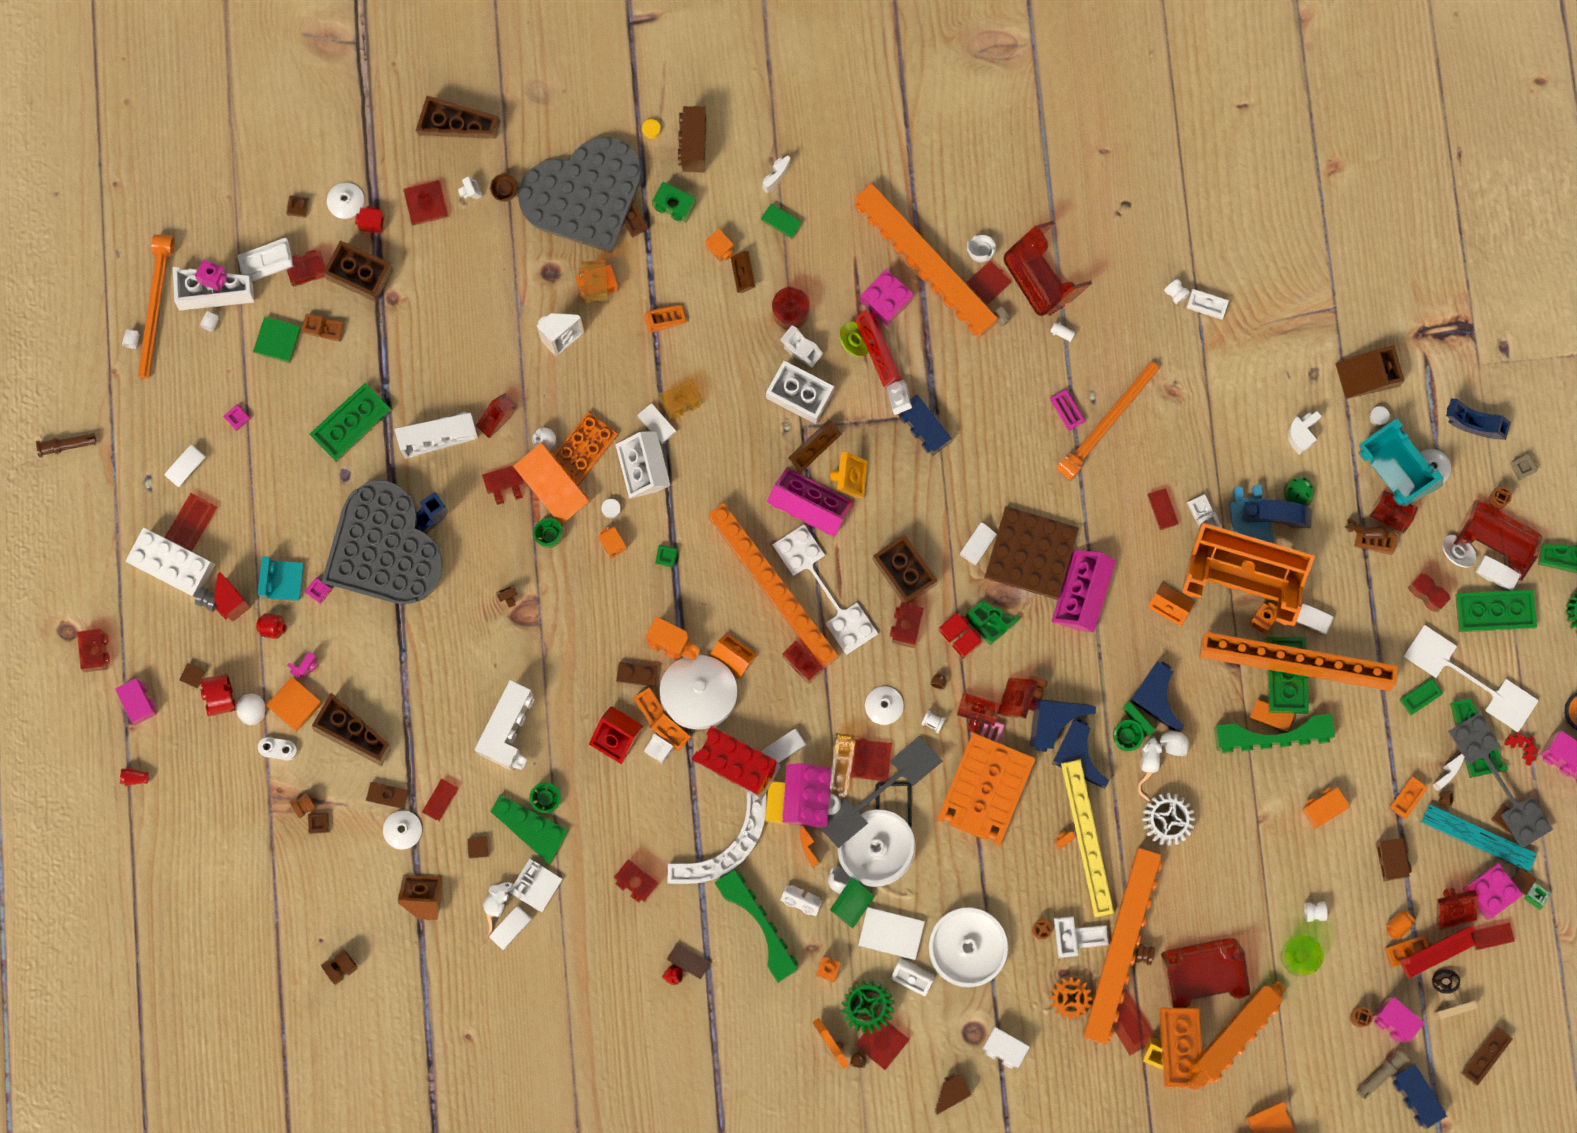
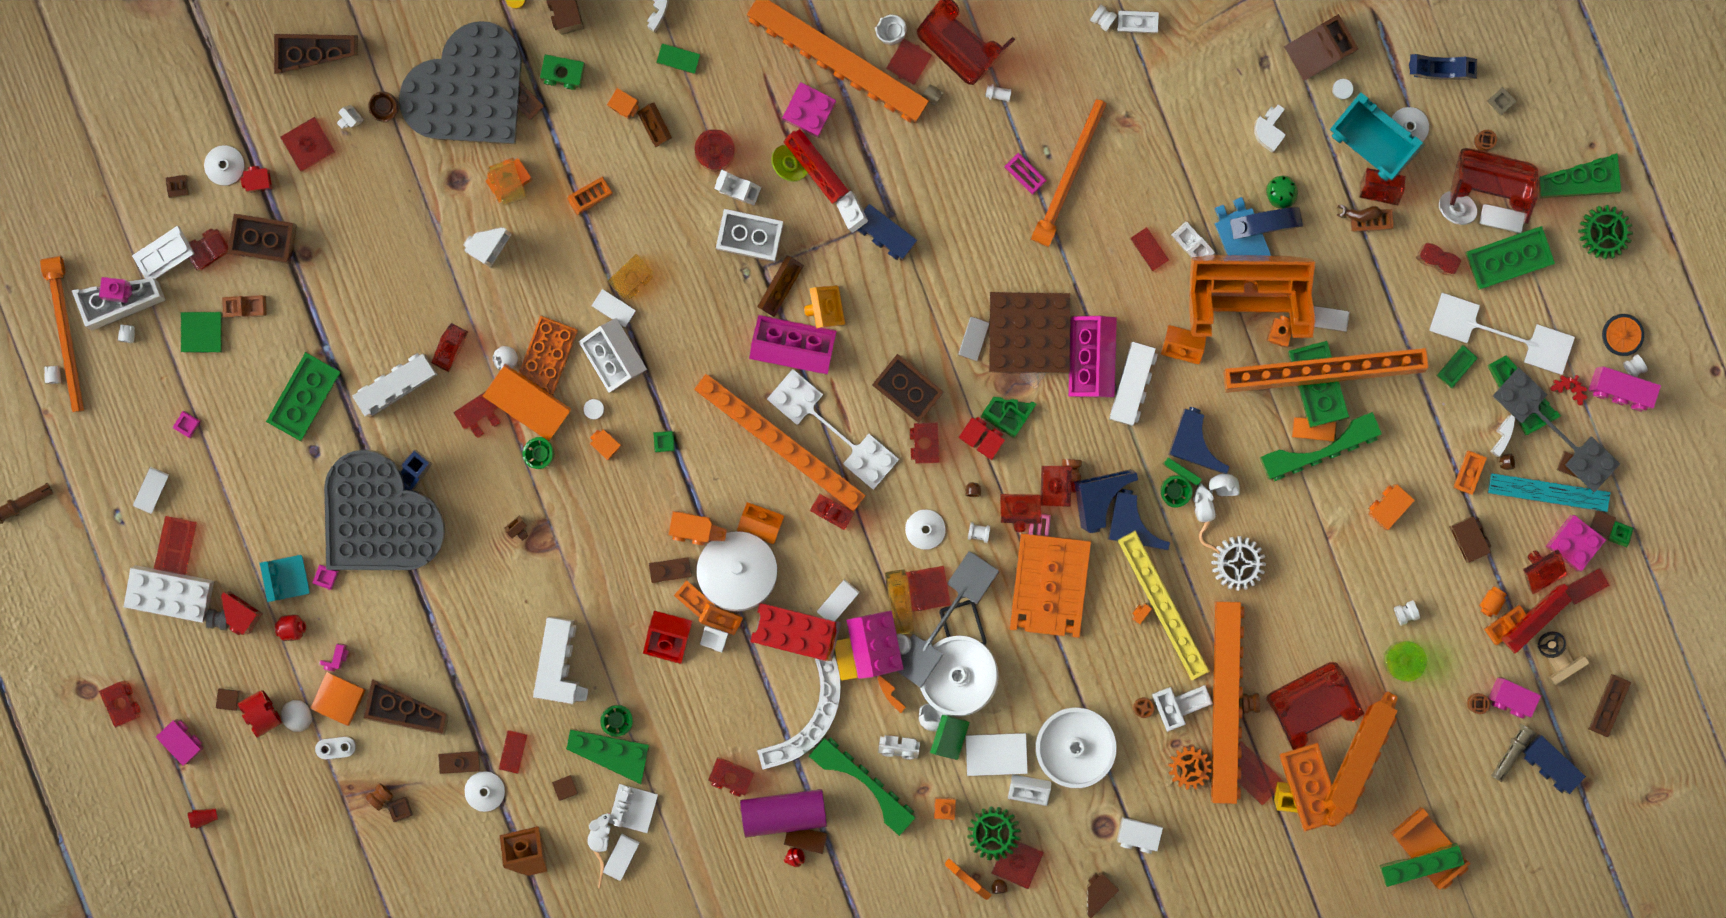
camera: 15 degrees left, 10 degrees up
(675, 929) = (783, 813): none -> magenta piece
(1114, 625) = (1132, 384): none -> white brick

